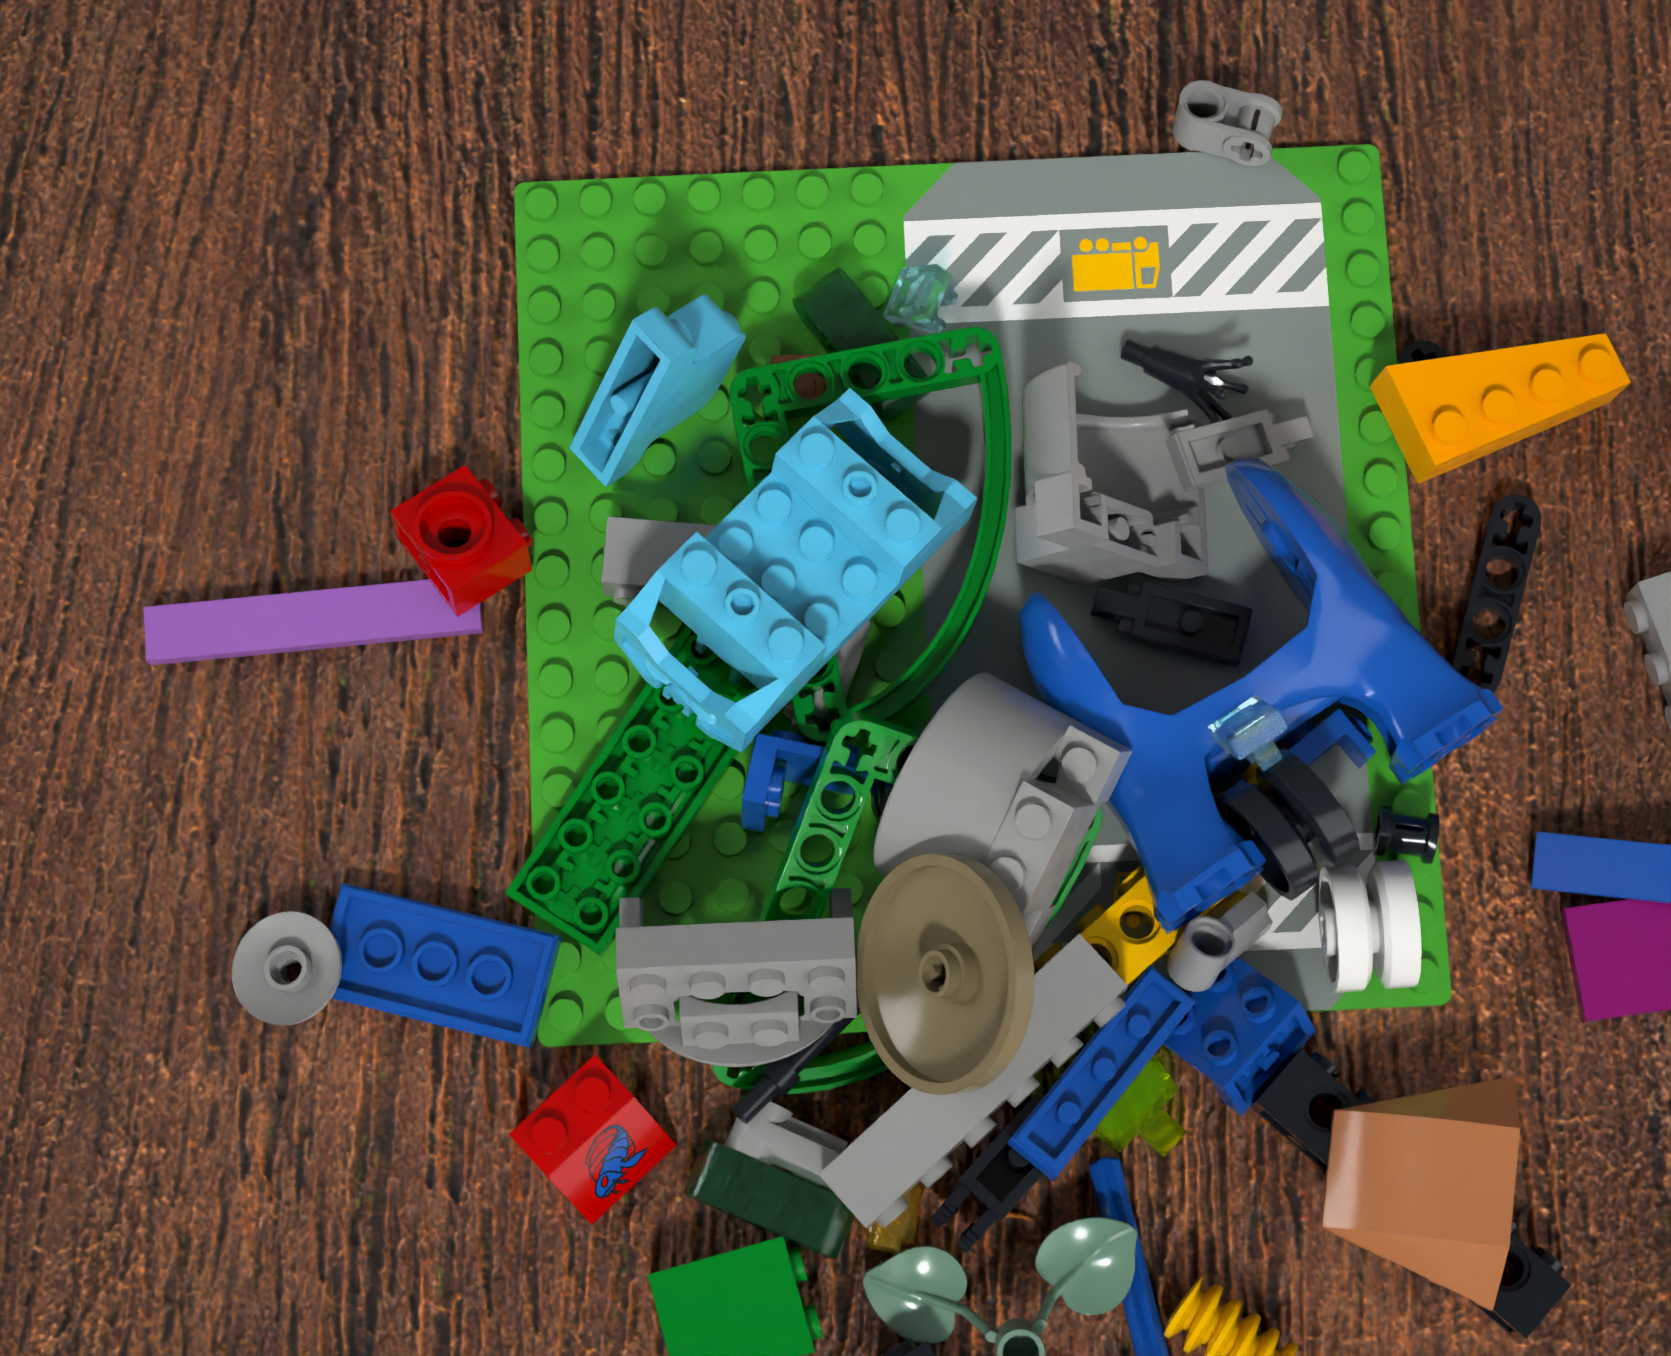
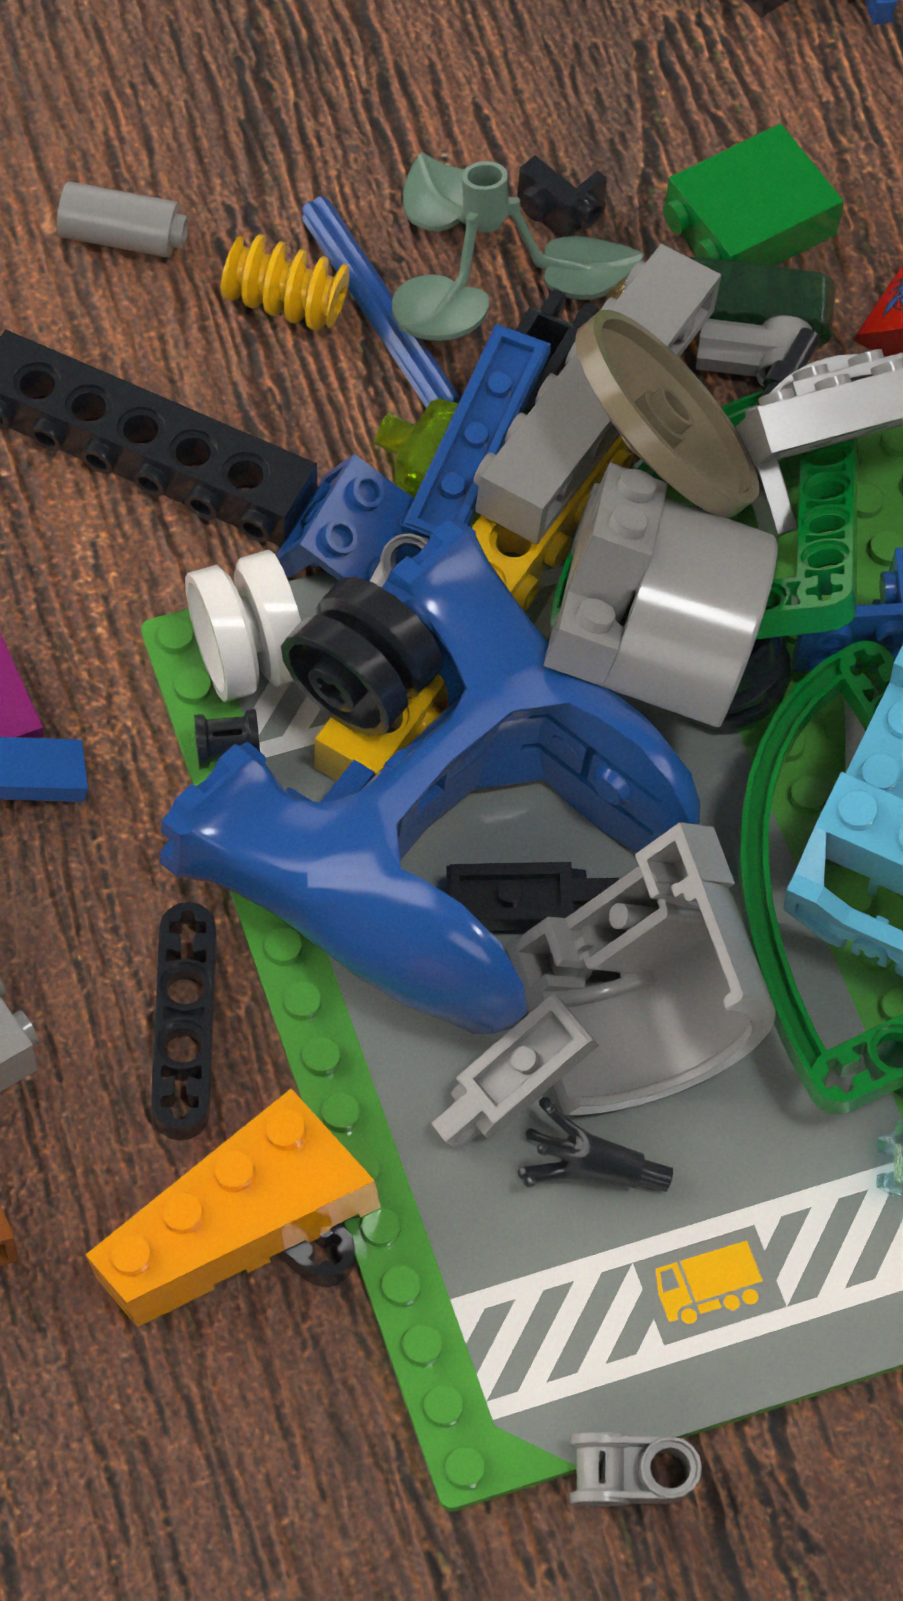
camera: 160 degrees right, 15 degrees down
(1250, 731) = (429, 704): clear light blue tile -> none
(1429, 1183) = (135, 427): nougat wedge -> none

